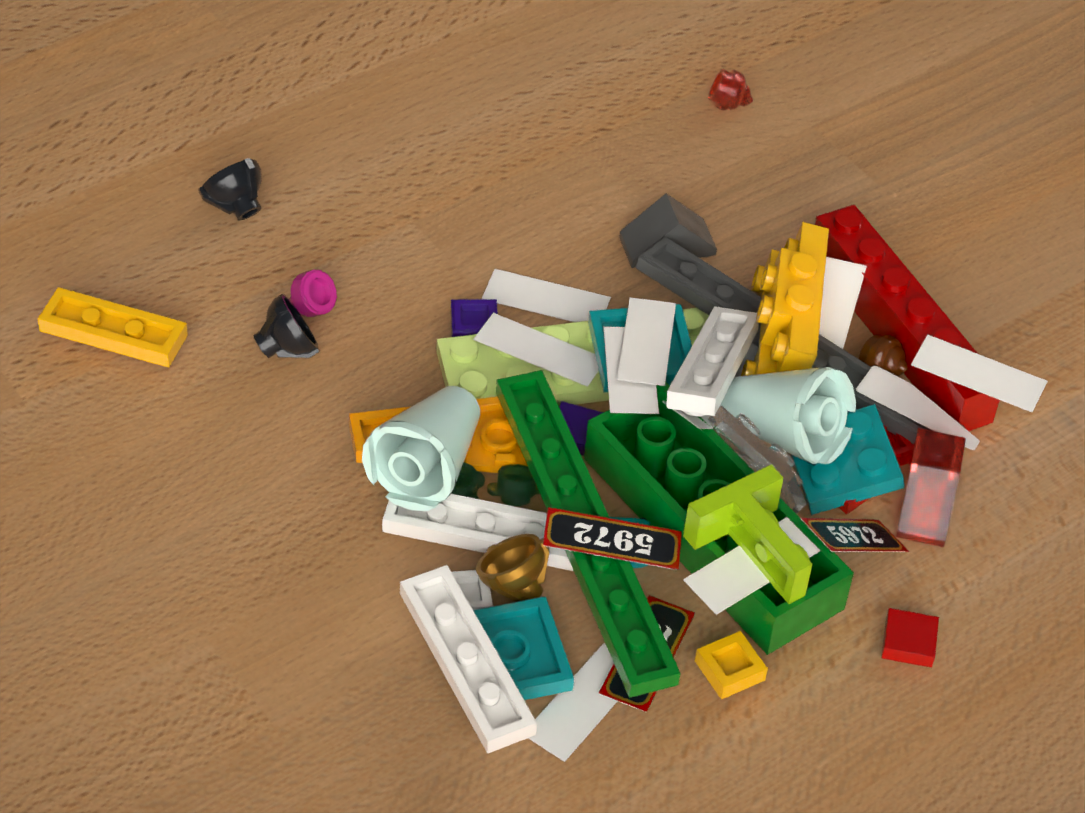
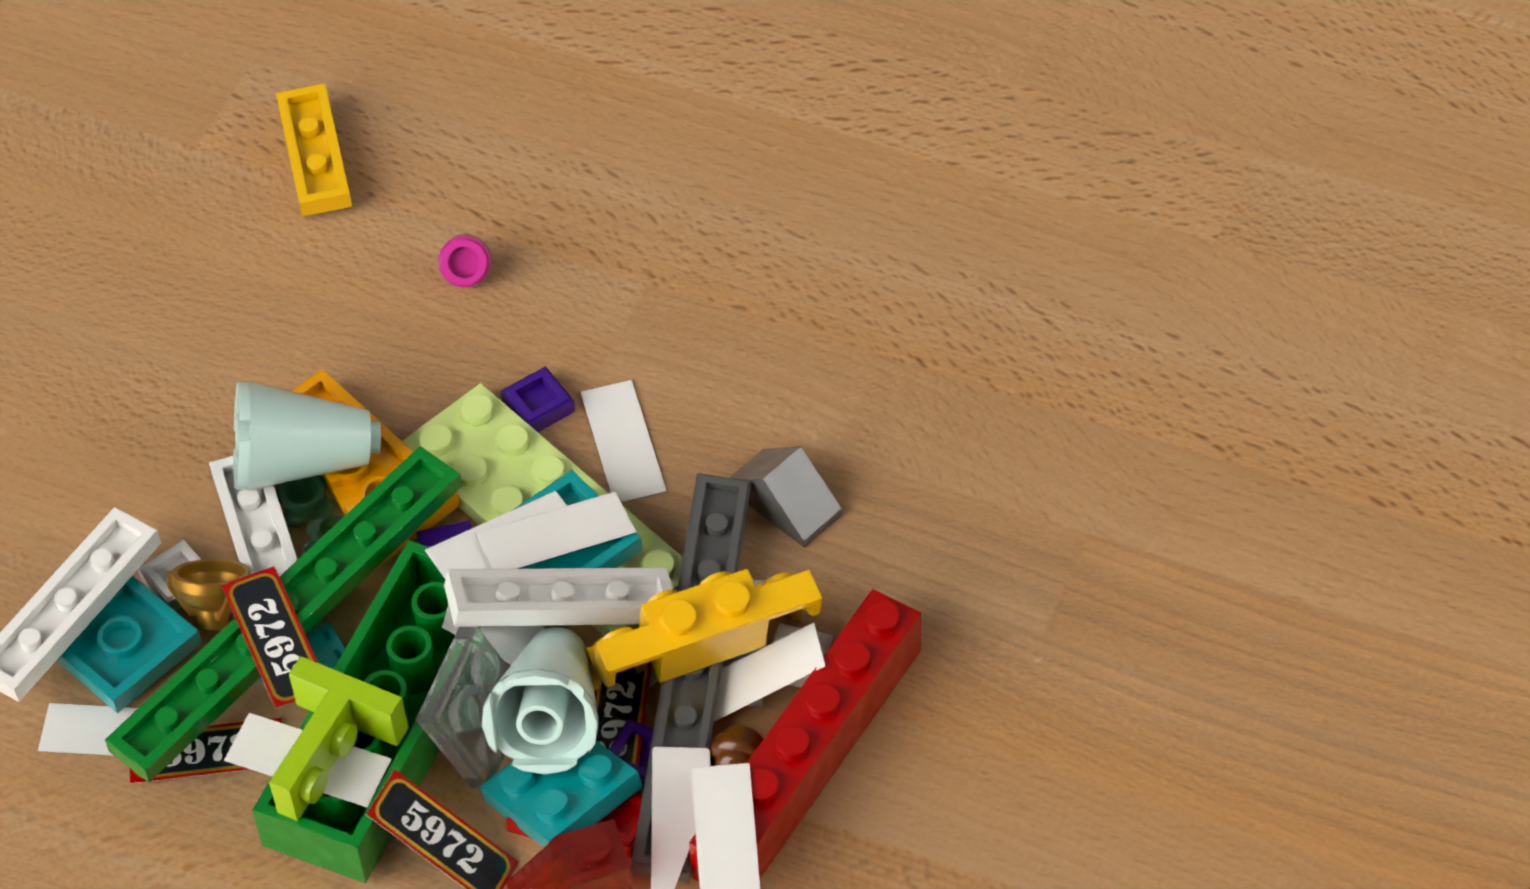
camera: 65 degrees right, 5 degrees up
(235, 189) = (555, 129): black piece -> none
(286, 332) = (402, 268): black piece -> none
(538, 349) = (512, 455): white sticker -> none
(730, 90) = (1059, 430): clear red plate -> none
(731, 664) = (219, 818): yellow plate -> none

